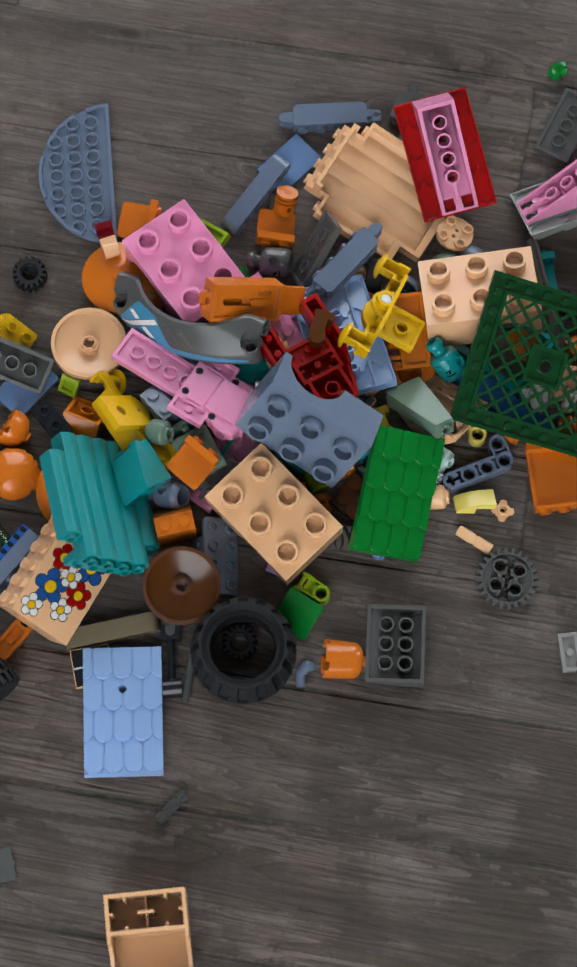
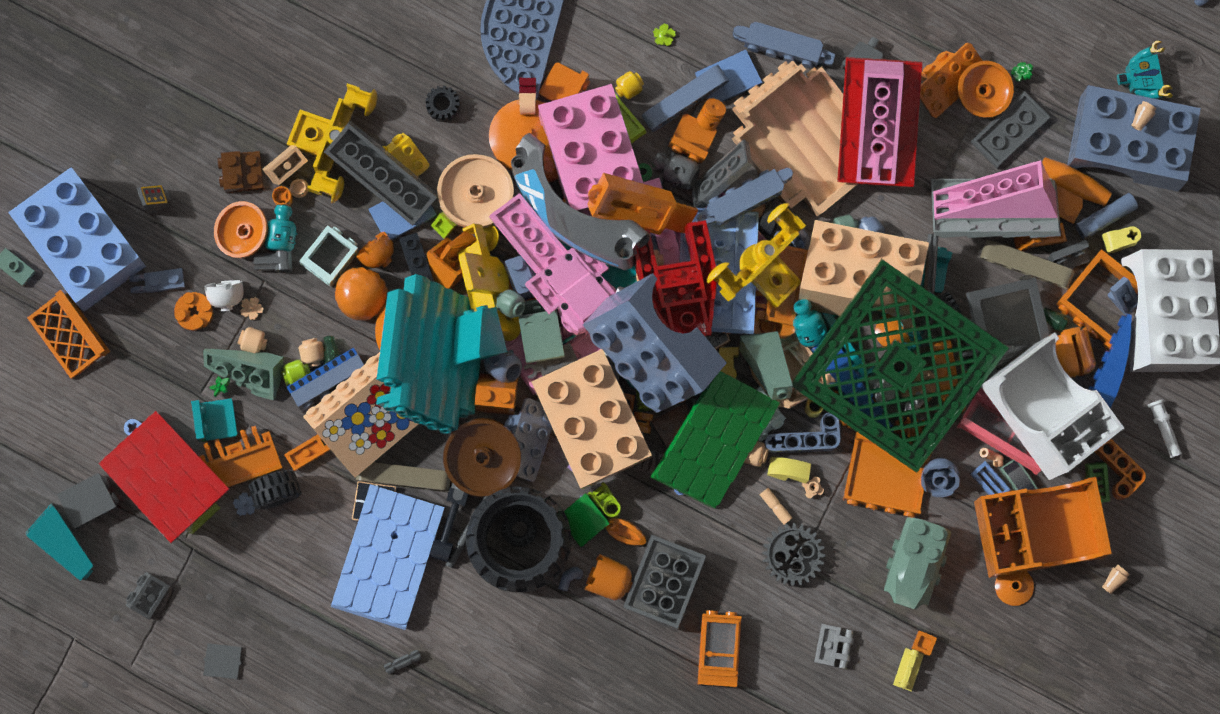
camera: 15 degrees right, 5 degrees up
(89, 397) = (459, 243): none -> orange slope
(193, 462) = (532, 344): orange bracket -> none
(200, 199) = (629, 85): none -> yellow head
(215, 146) = (663, 35): none -> lime plant
(317, 331) = (694, 256): reddish brown leg -> none
(342, 612) = (626, 532): none -> orange arm
(461, 239) = (868, 208): light nougat plate -> none
(469, 691) = (719, 649): none -> door
(494, 97) = (943, 76): none -> orange bracket
(539, 91) = (997, 87): none -> orange dish

